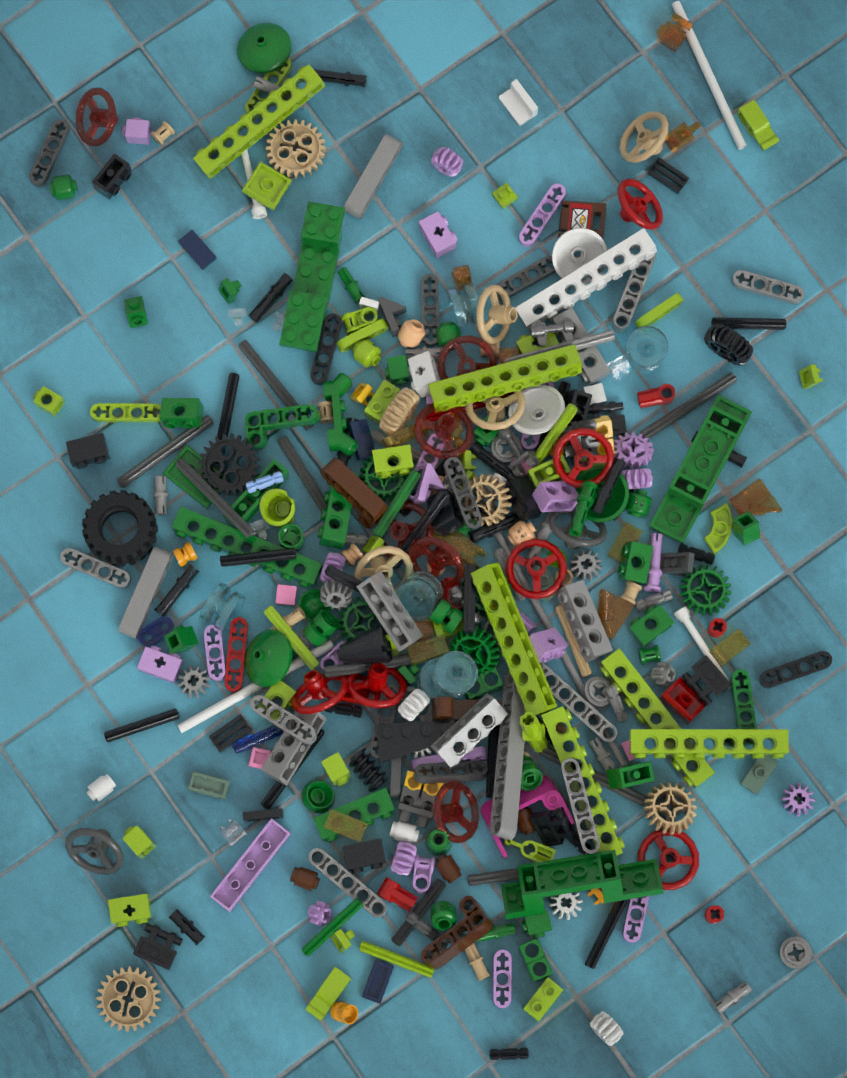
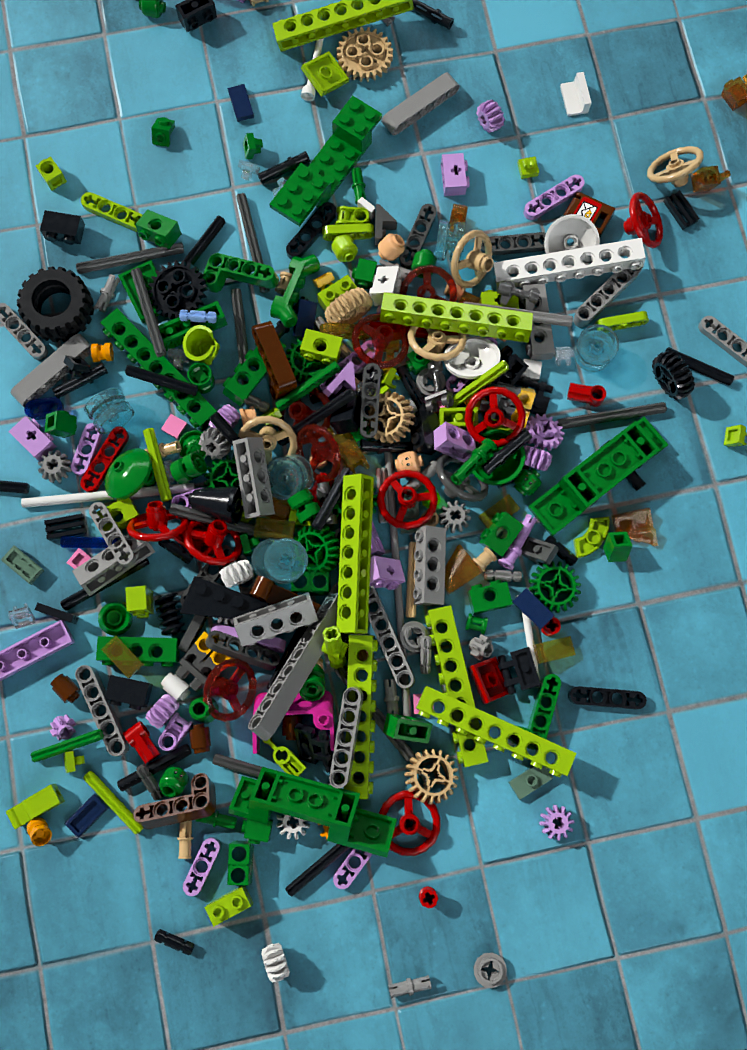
camera: 20 degrees right, 0 degrees up
(170, 578) = (76, 366): none -> black tile
(695, 618) = (533, 609): none -> dark blue tile

